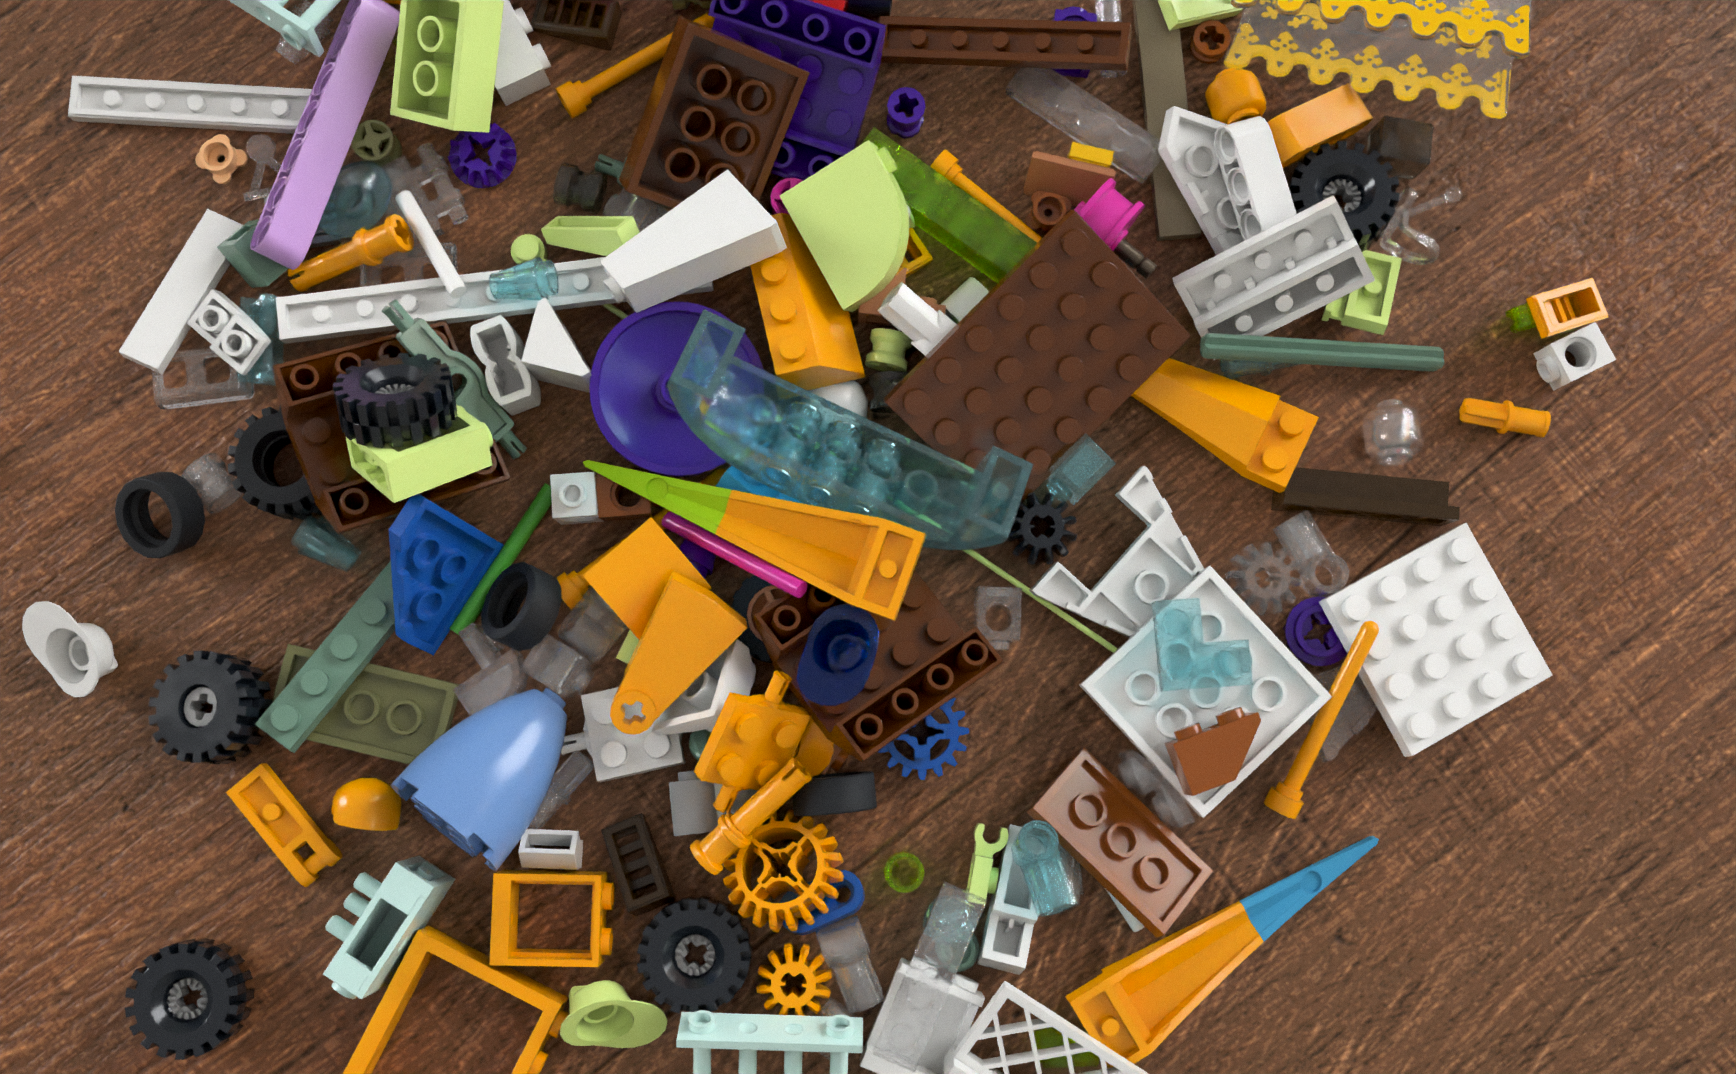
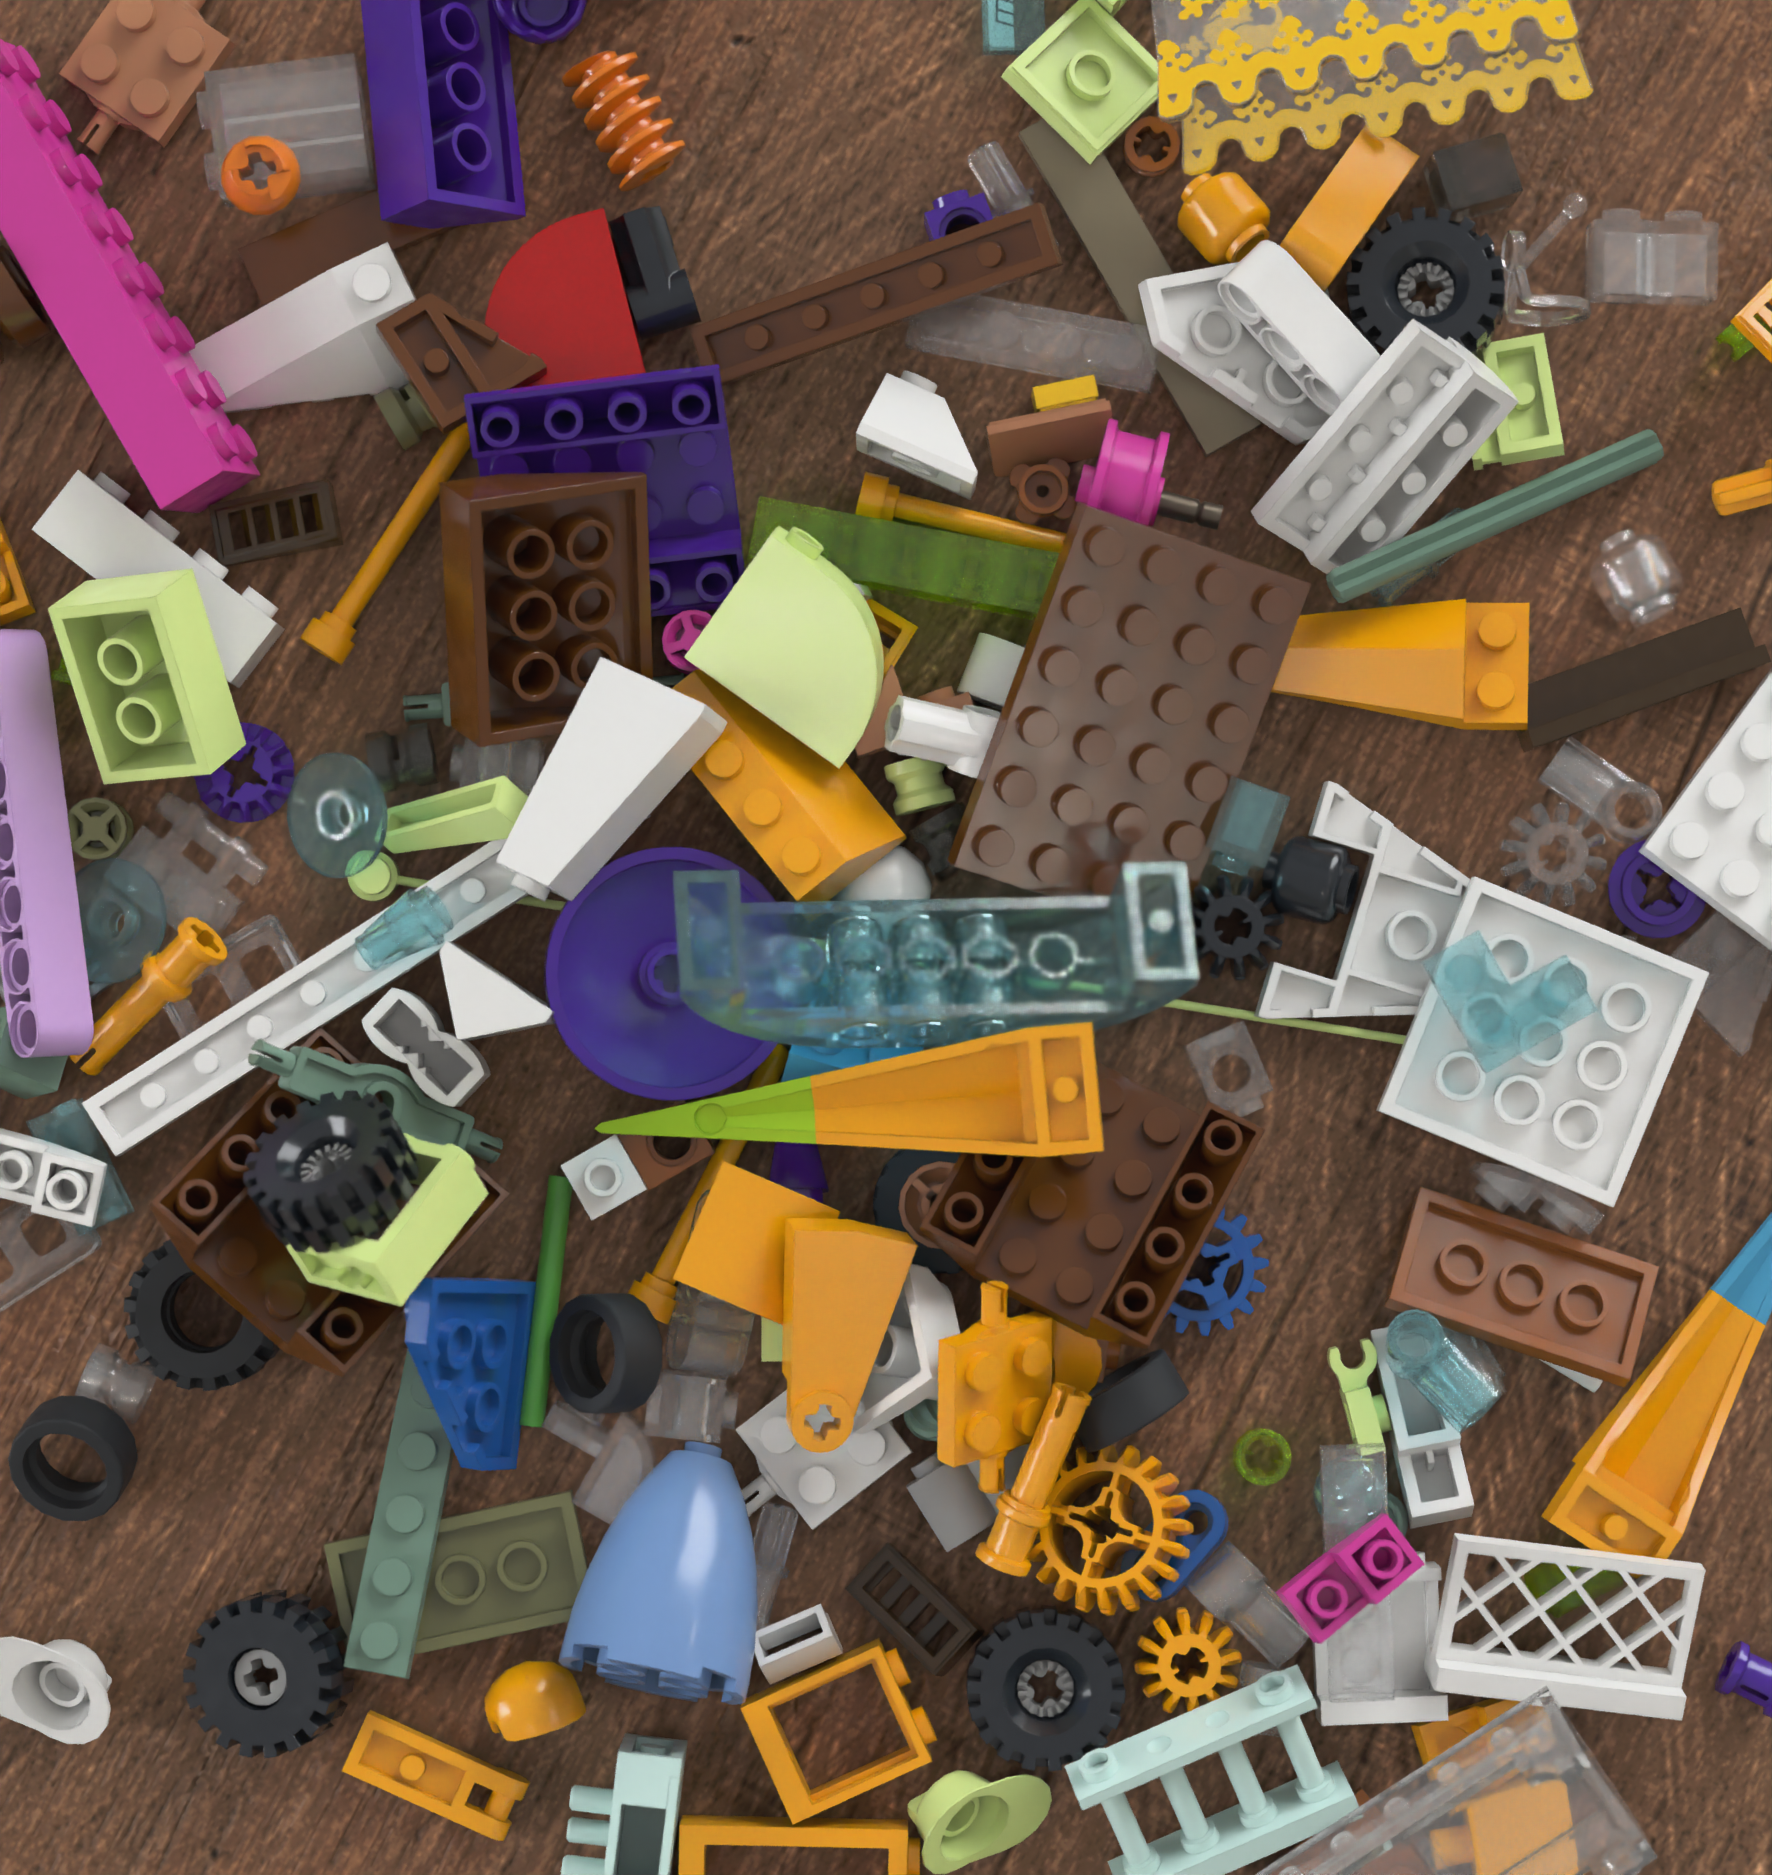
camera: 20 degrees left, 5 degrees up
(322, 543) = (304, 1393): clear light blue cone -> none
(431, 244) = (249, 934): white bar -> none
(523, 202) = (337, 815): none -> clear light blue dish
(735, 554) = (855, 1158): dark pink bar -> none
(838, 655) = (1053, 1228): clear blue piece -> none
(914, 104) = (787, 427): dark purple bush -> none
(923, 977) = (1350, 1577): none -> dark pink slope
(986, 139) = (917, 434): none -> white slope
(1104, 523) = (1311, 880): none -> black head
(1212, 754) = (1588, 1121): dark orange slope -> none
(1287, 794) = (1710, 1124): light orange piece -> none
(1488, 246) = (1651, 260): none -> clear brick

